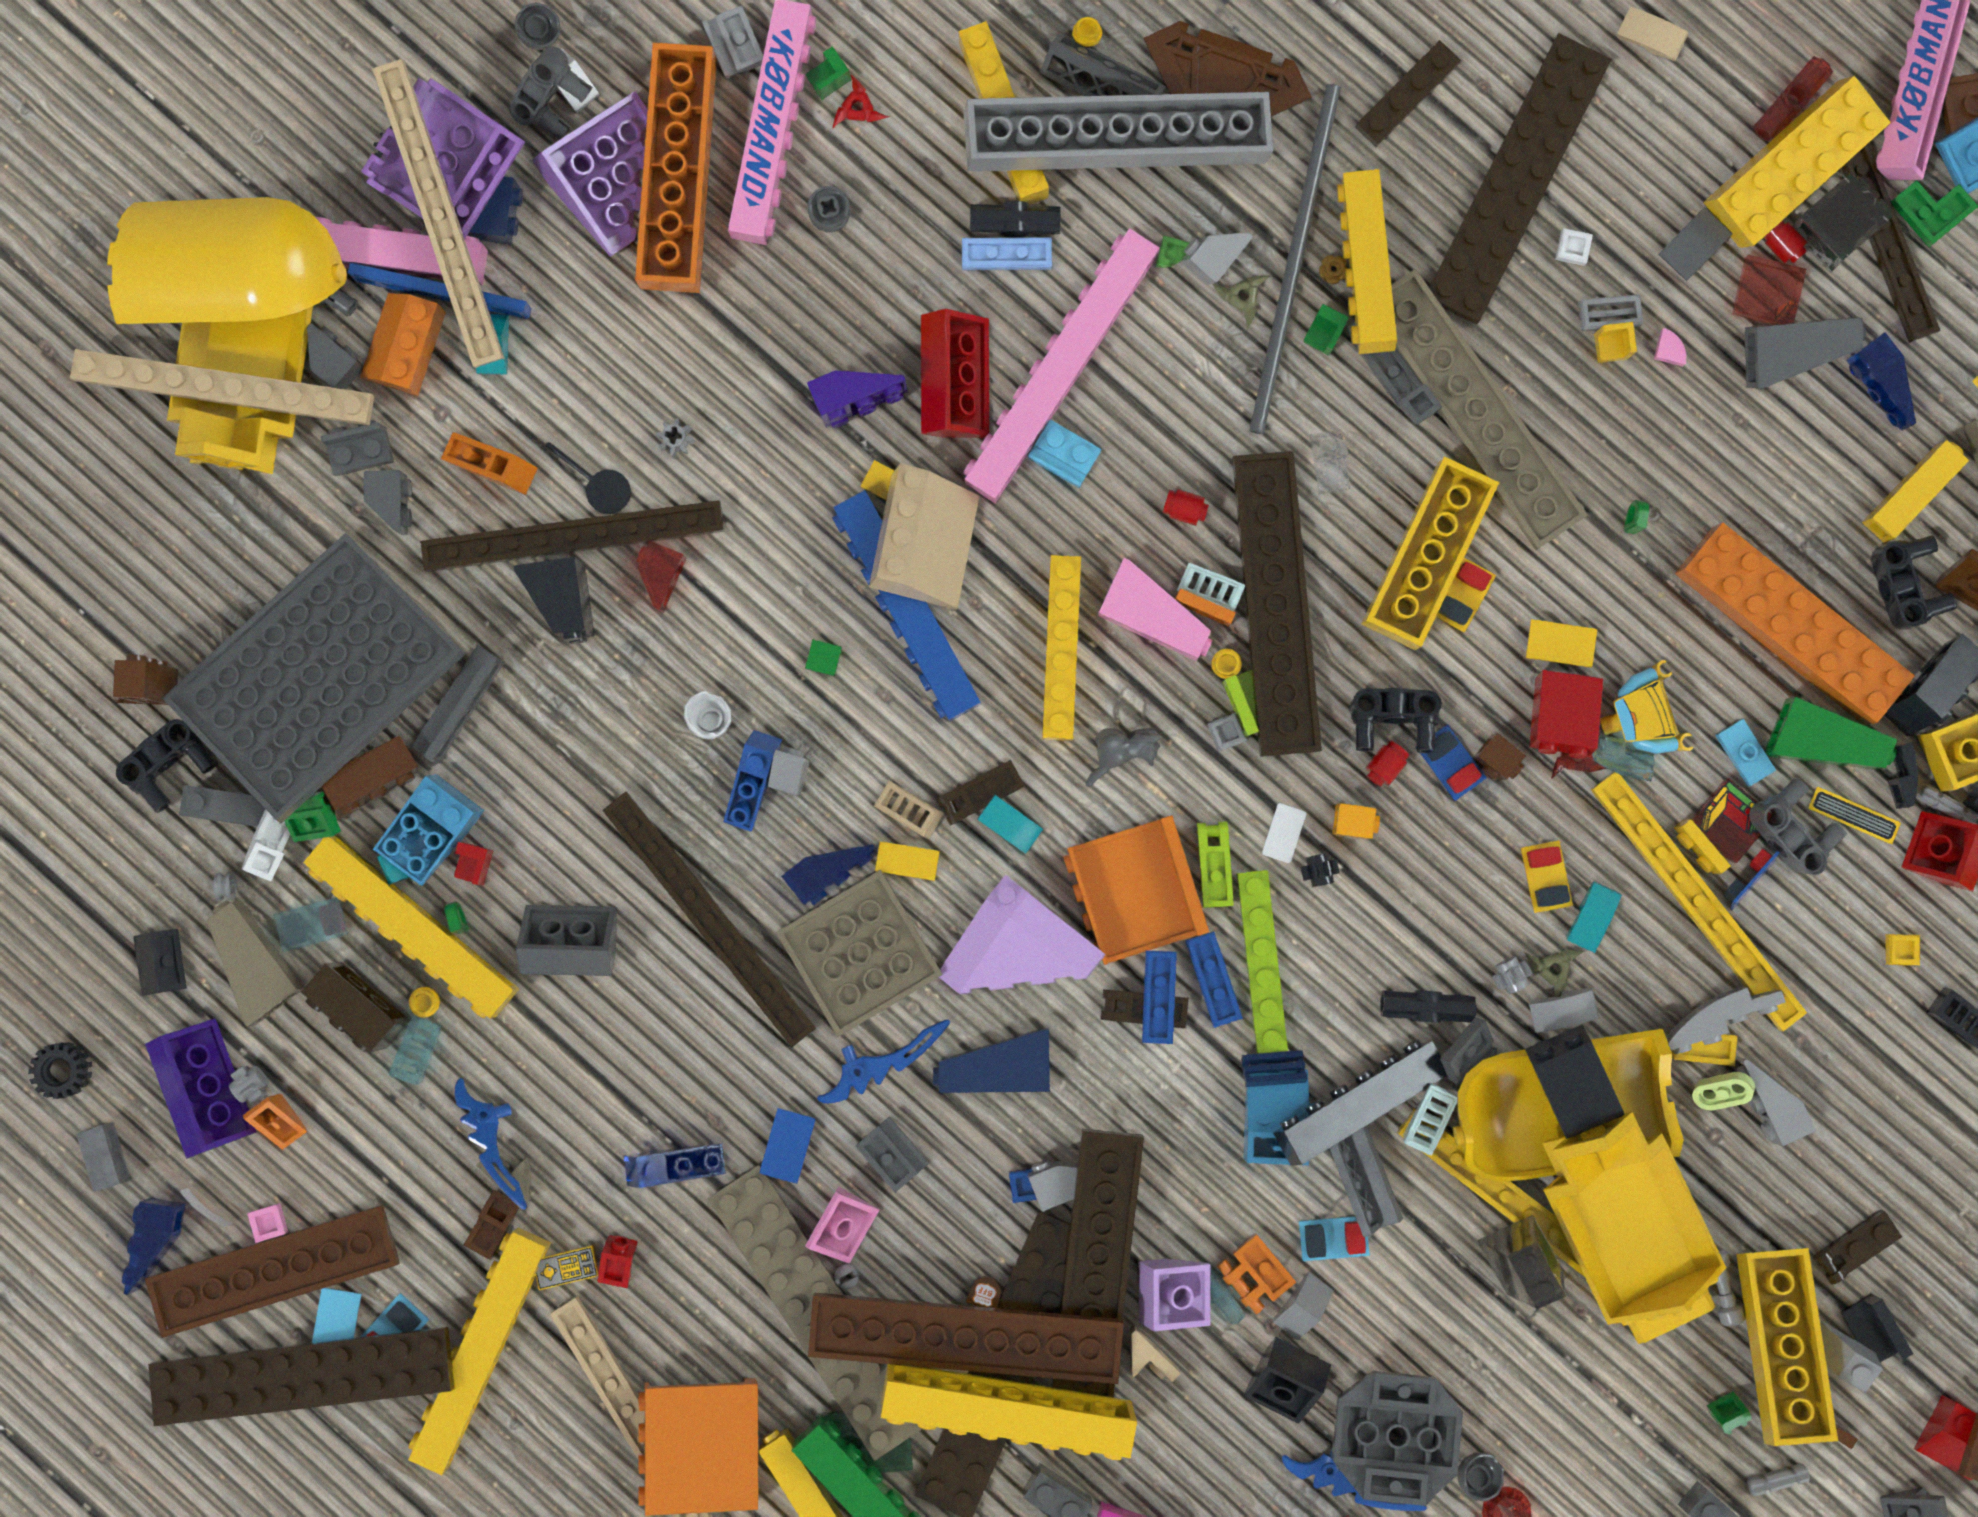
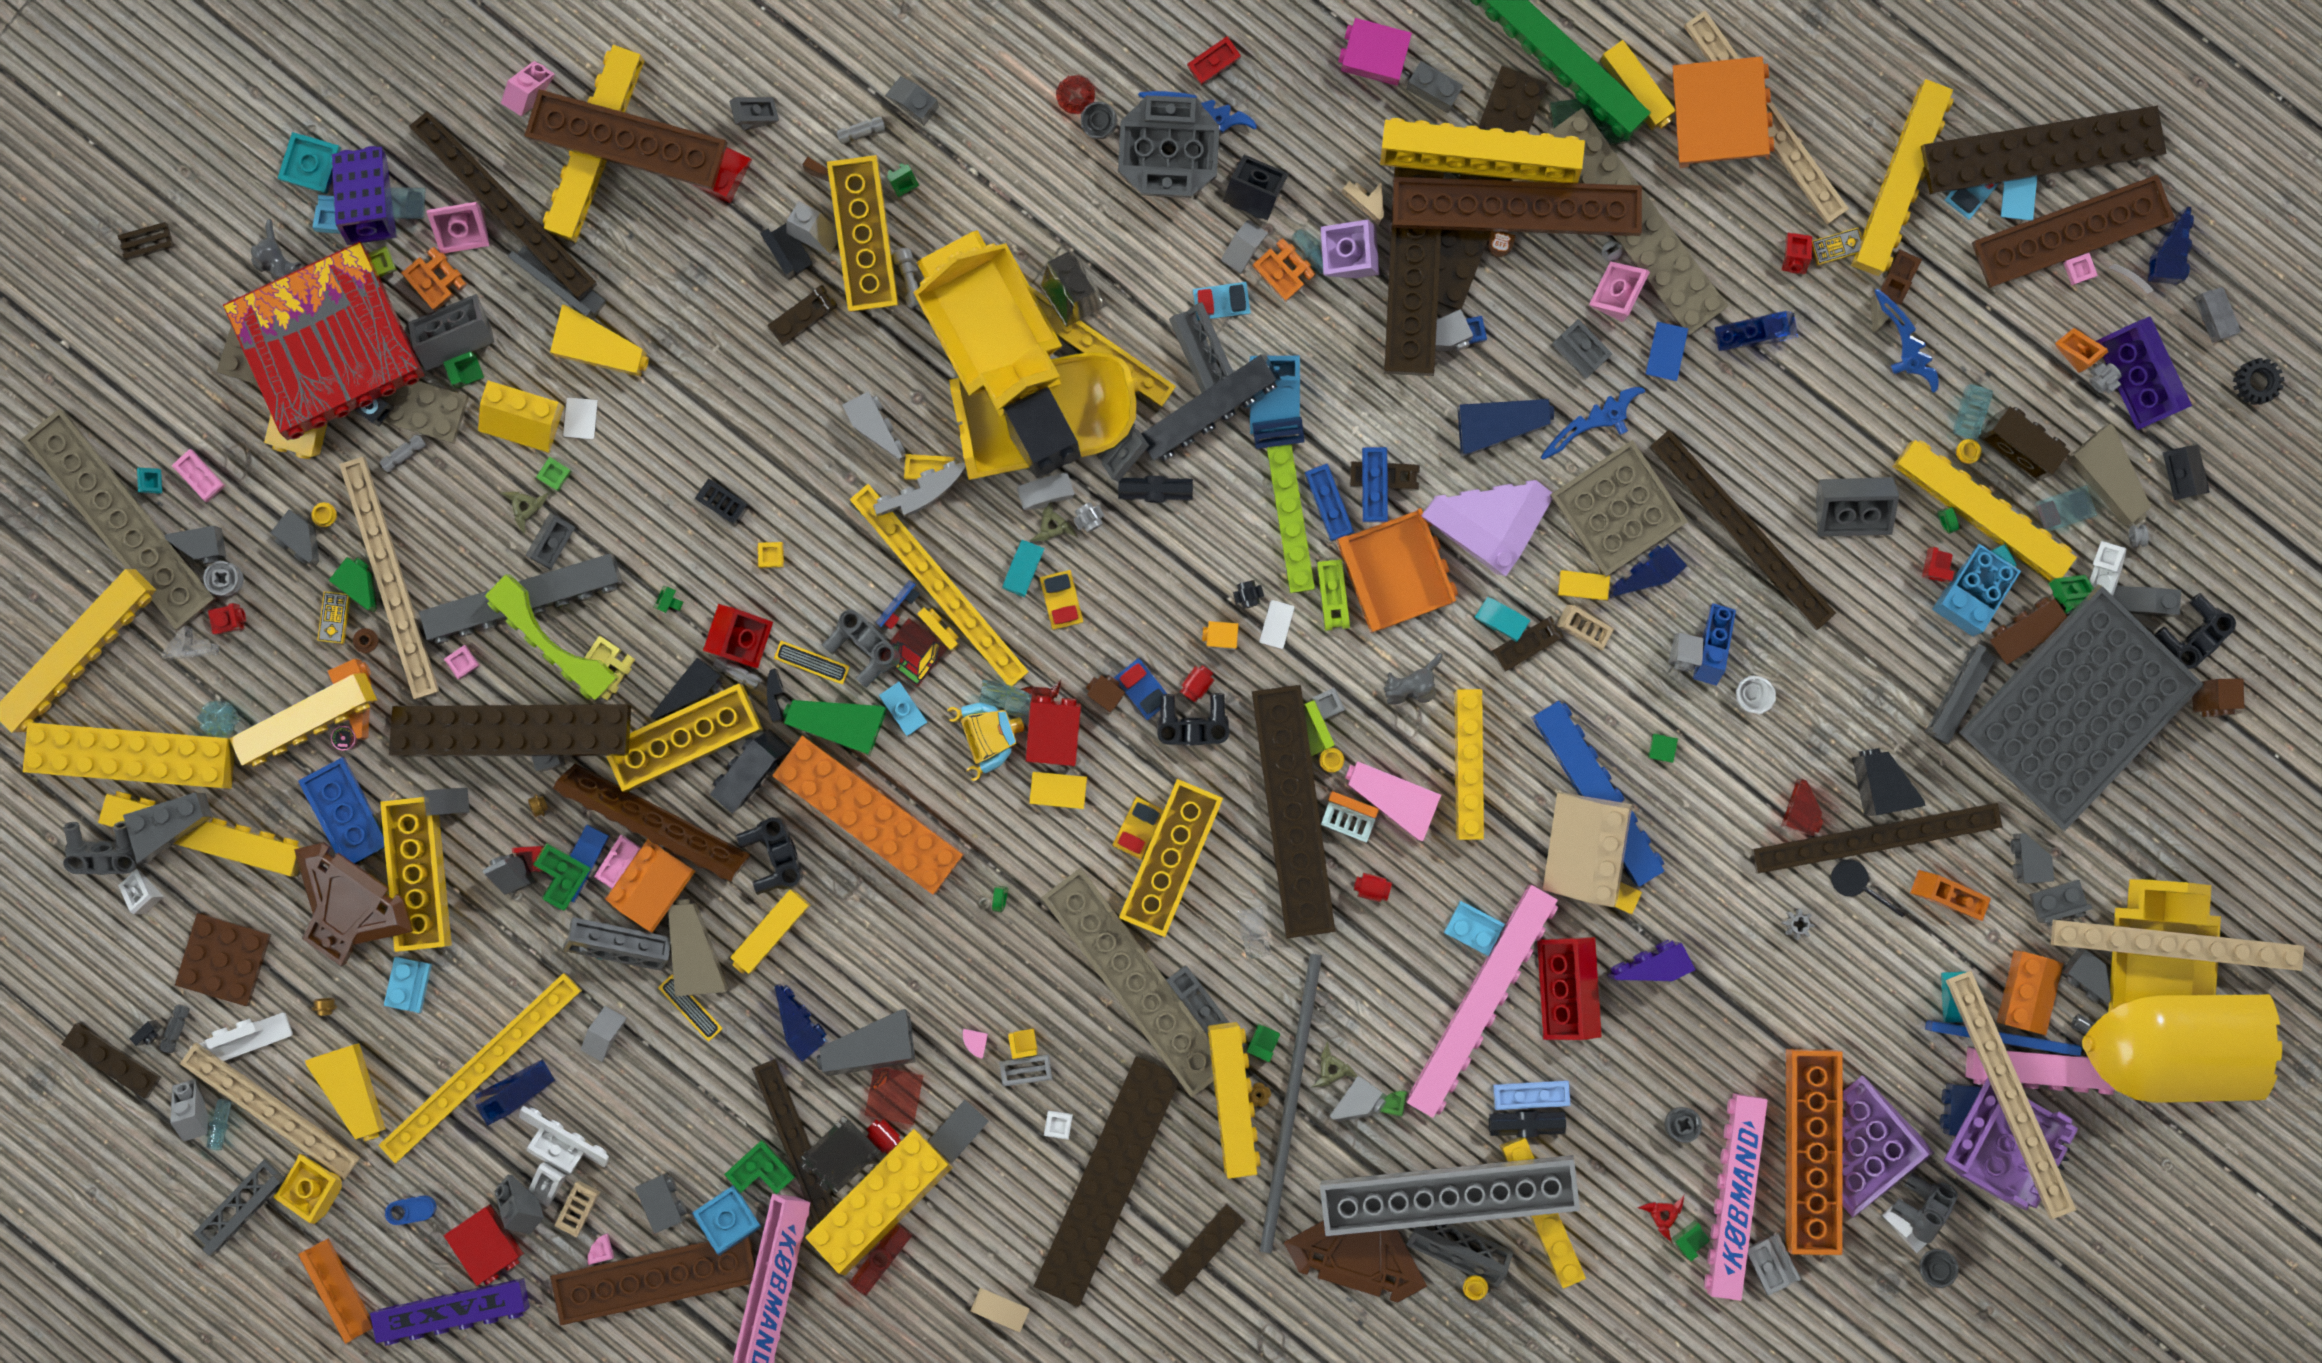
camera: 170 degrees right, 0 degrees up
(1418, 1141) = (1159, 383): light aqua slope -> none
(1725, 1090) = (916, 432): yellowish green plate -> none

